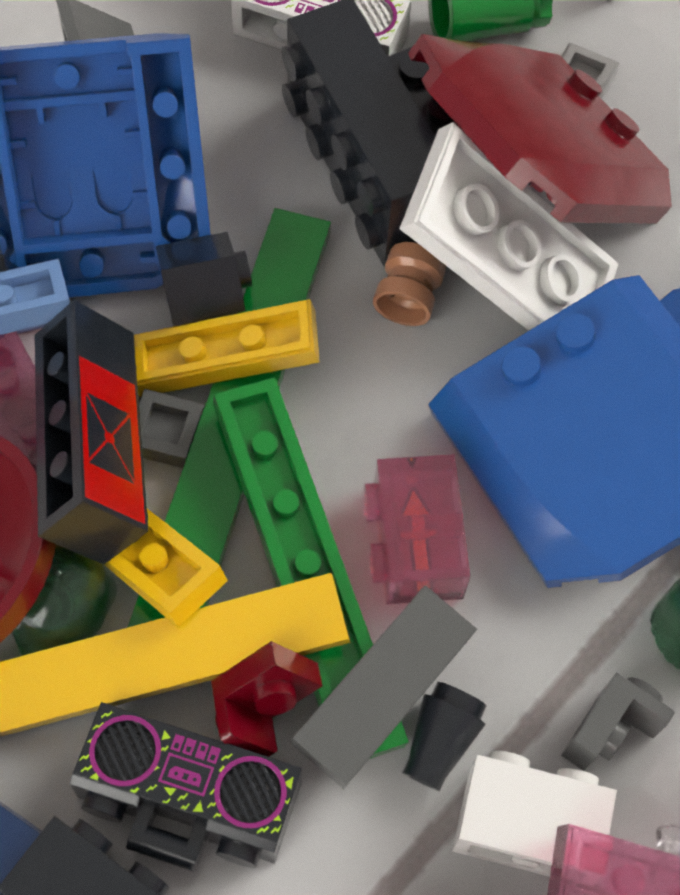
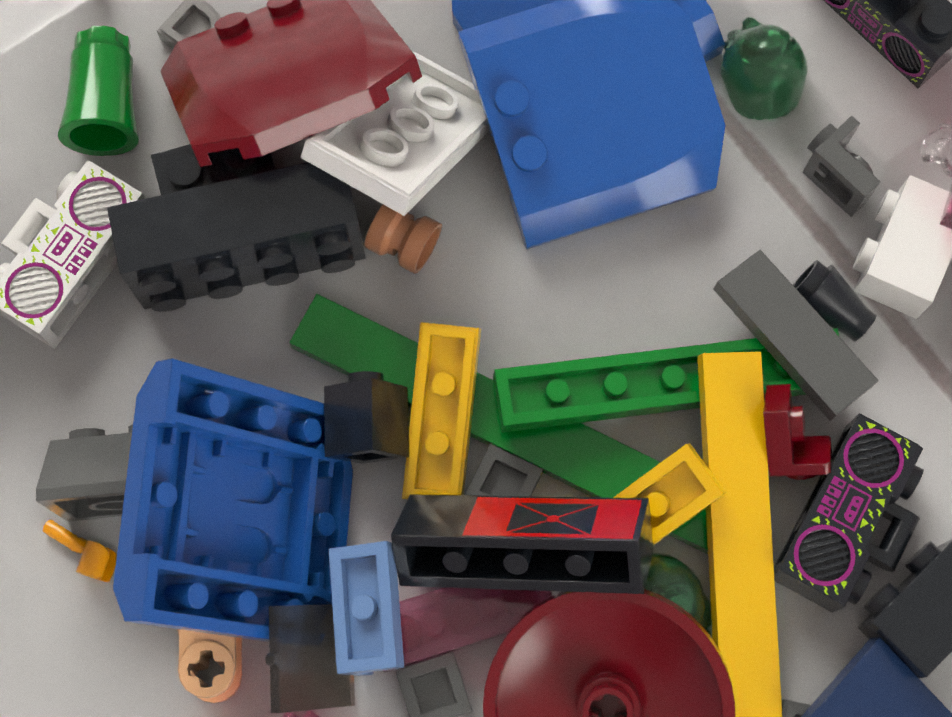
camera: 75 degrees left, 10 degrees up
(417, 528) = (650, 280): clear pink brick -> none

